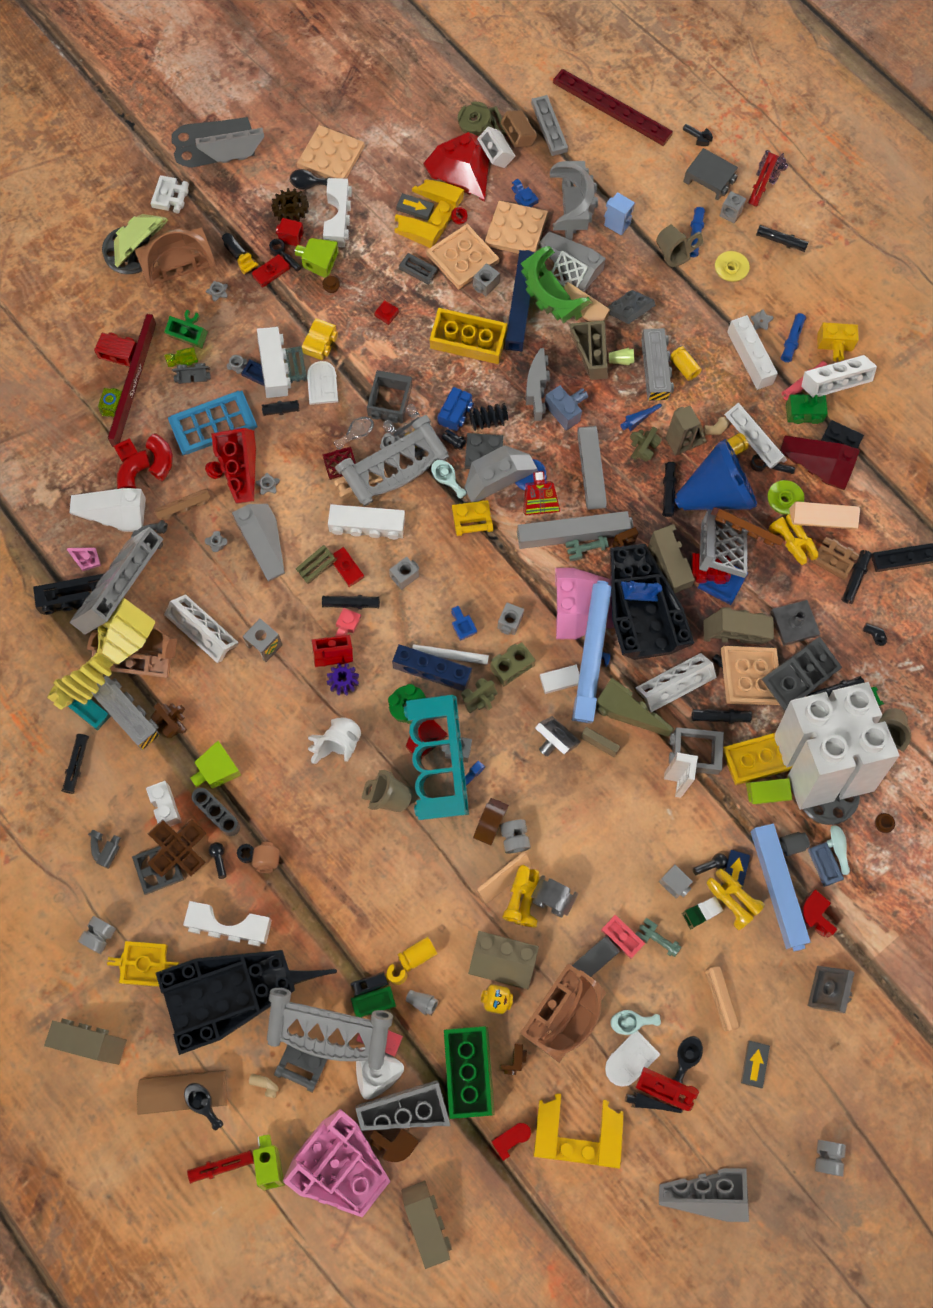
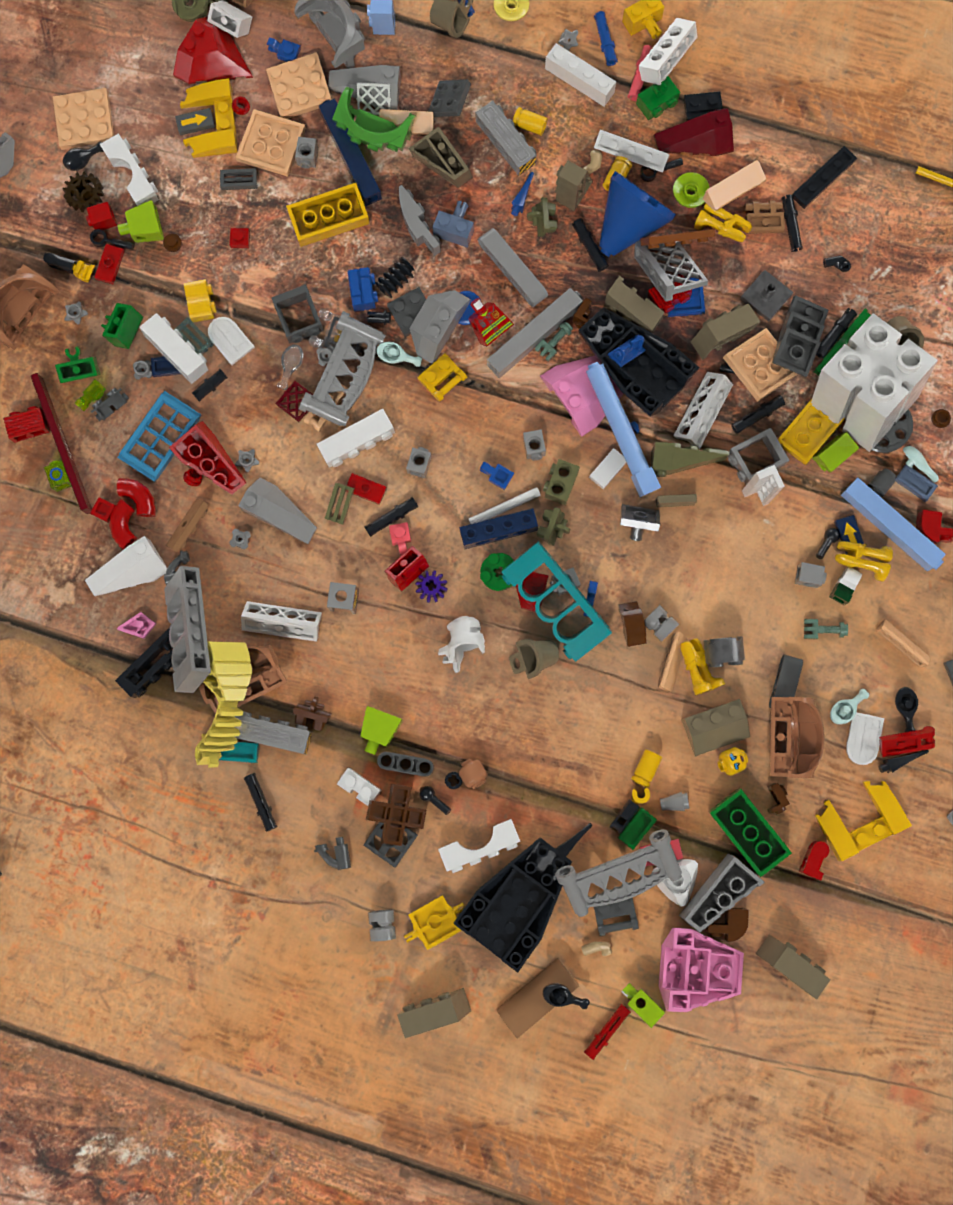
camera: 25 degrees left, 10 degrees up
(245, 320) = (122, 325): none -> green brick
(622, 356) = (472, 149): yellowish green cone -> none
(623, 936) = (797, 646): coral plate -> none

